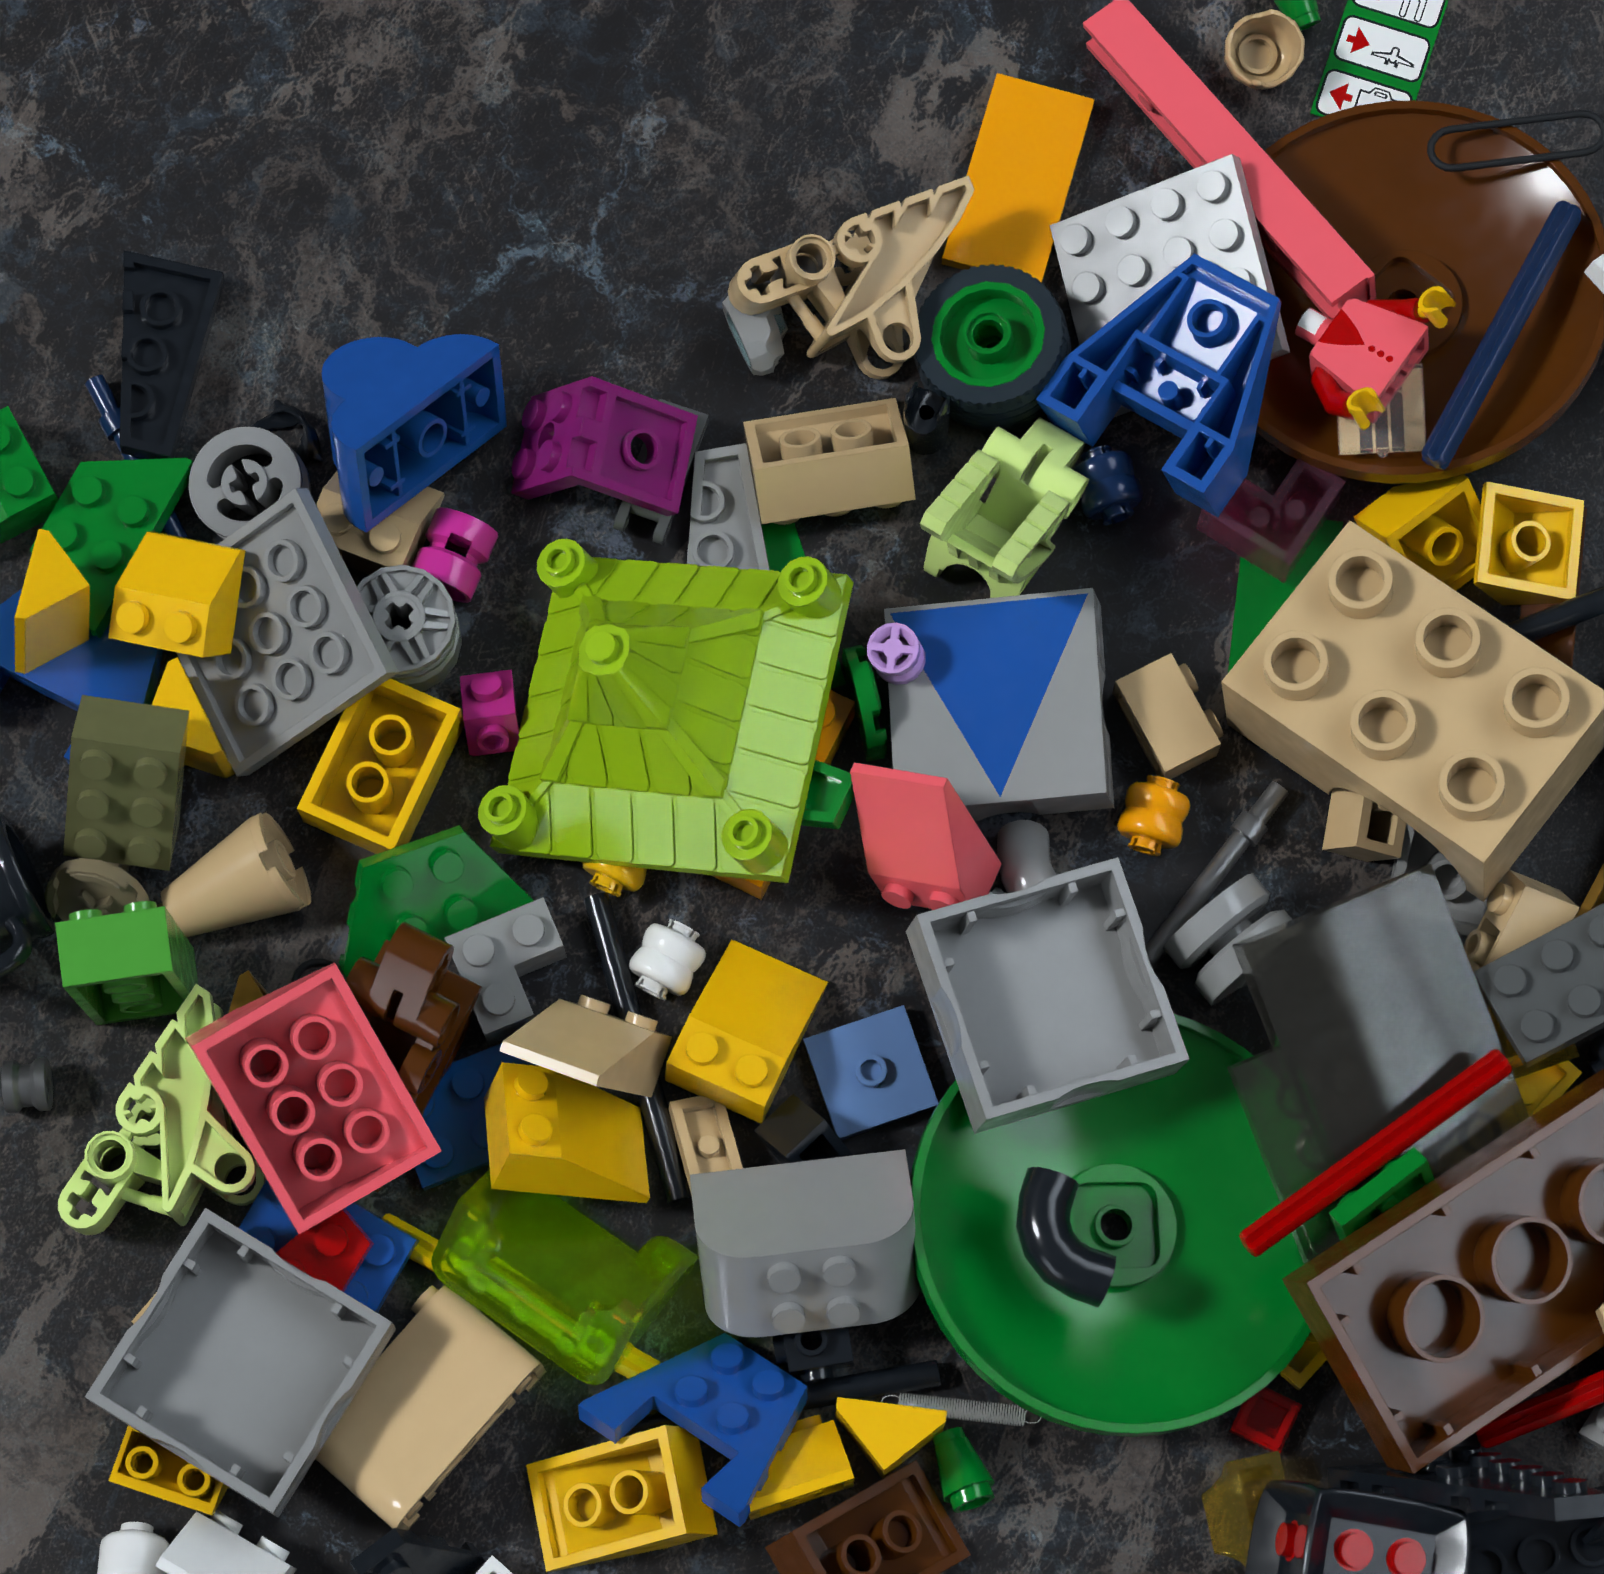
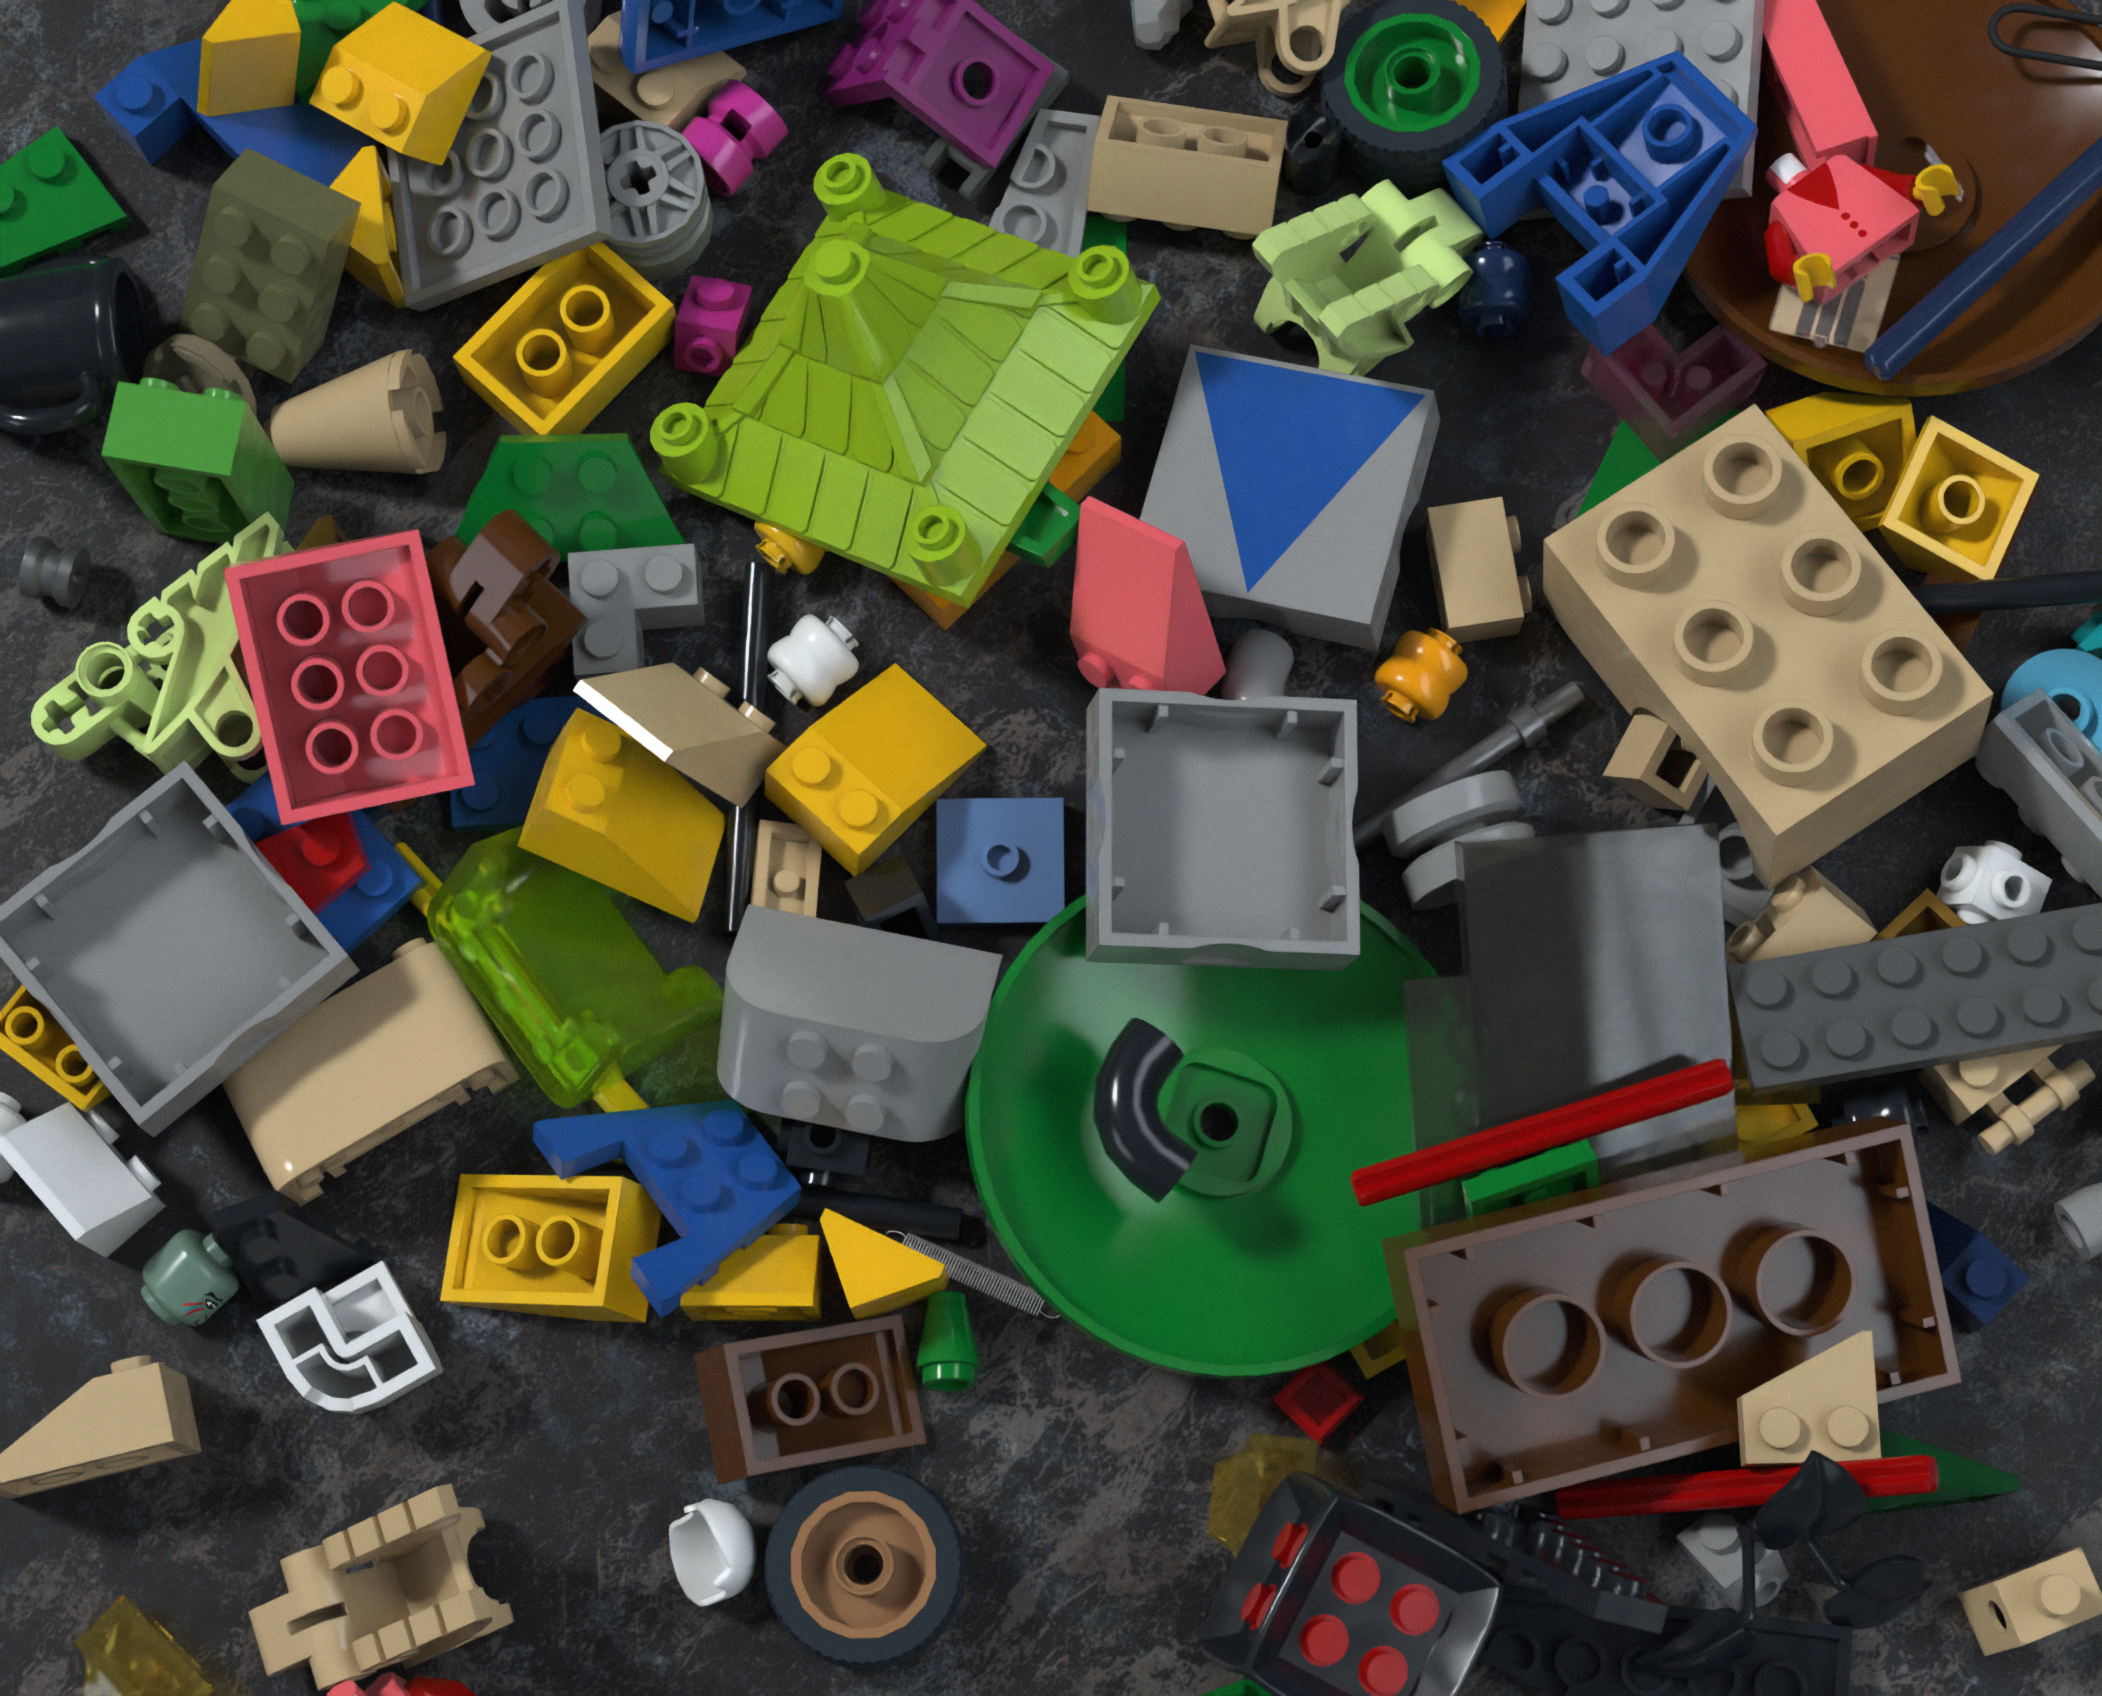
camera: 20 degrees right, 0 degrees up
(867, 701) = (1134, 444): green tile -> none
(890, 644) = (1178, 381): lavender wheel -> none

